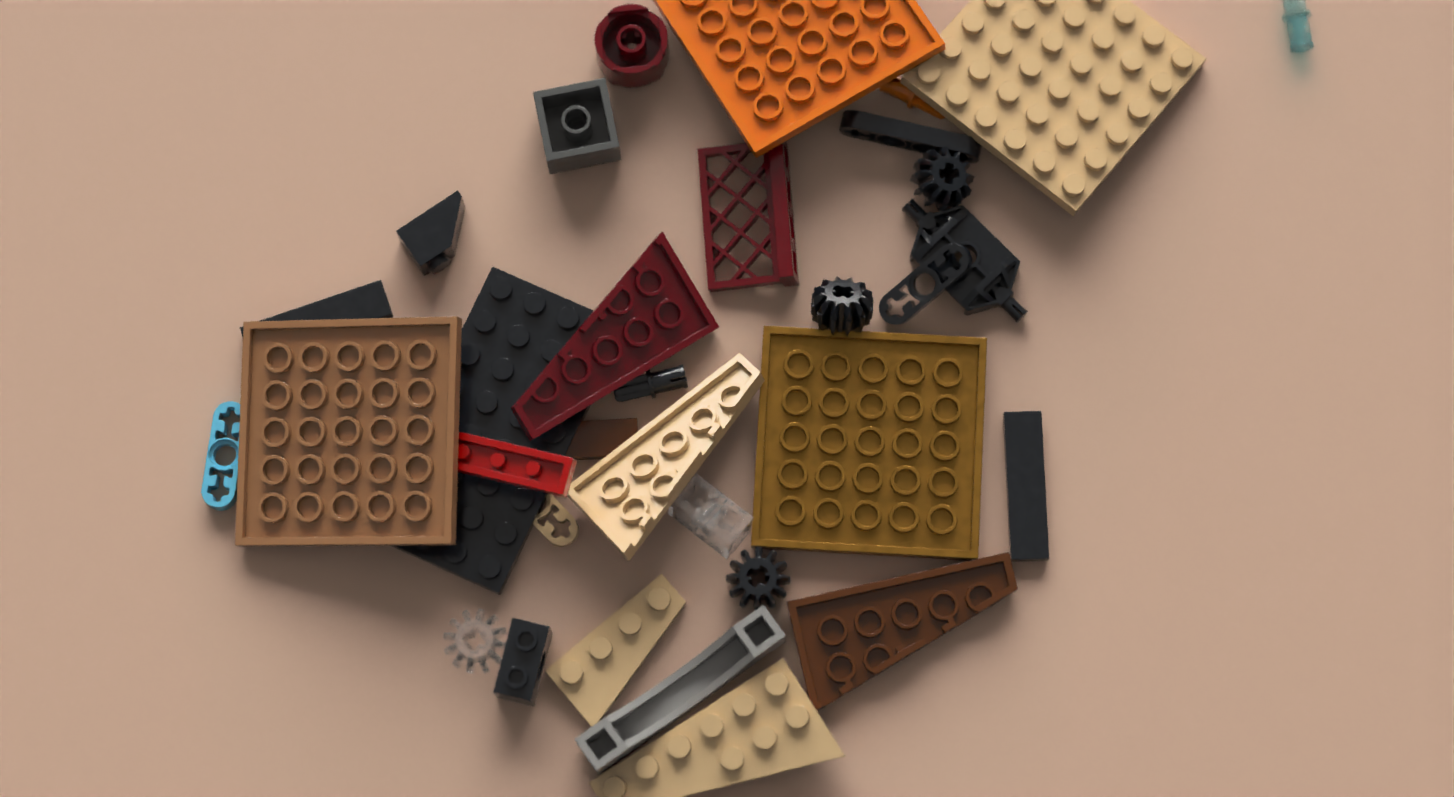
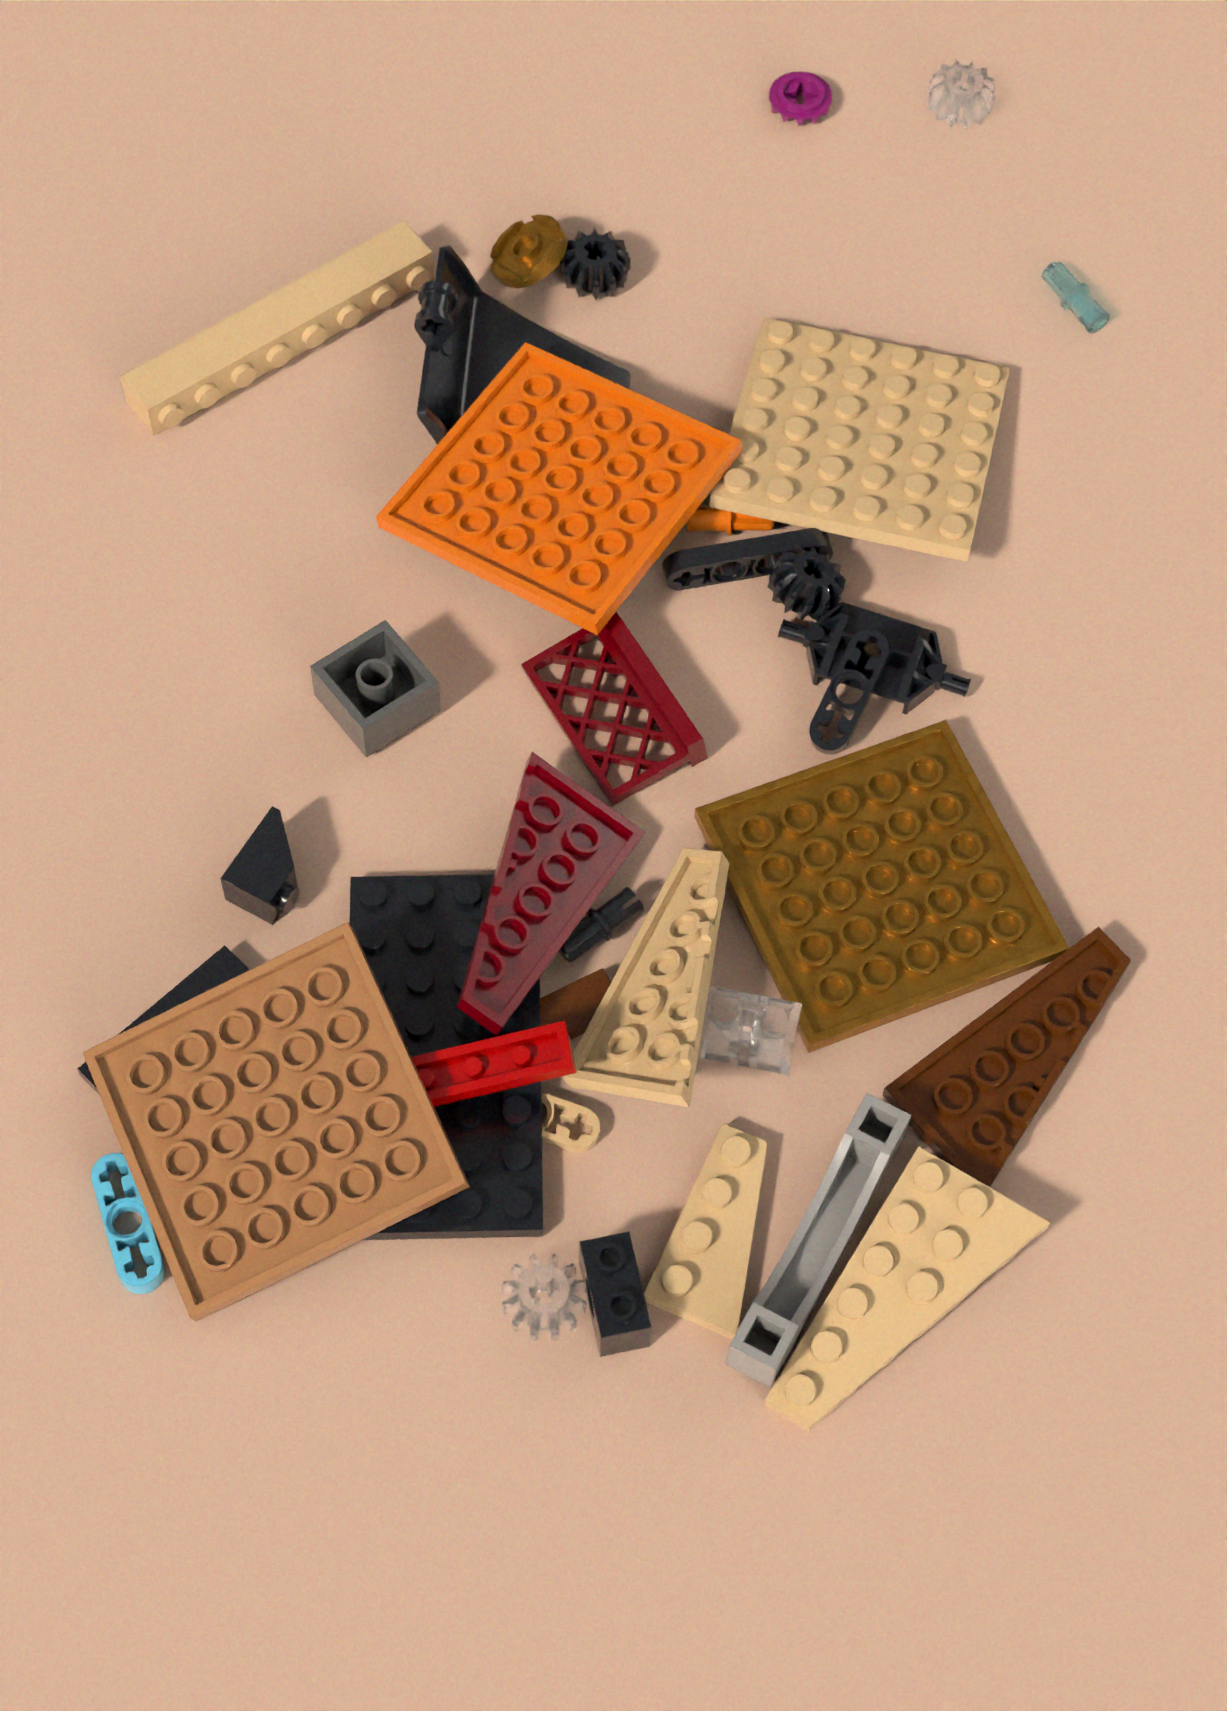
camera: 30 degrees left, 15 degrees down
(632, 66) = (395, 583): dark red brick -> none
(754, 567) = (839, 1061): black gear -> none
(842, 306) = (772, 750): black gear -> none
(1025, 486) = (1073, 855): black tile -> none

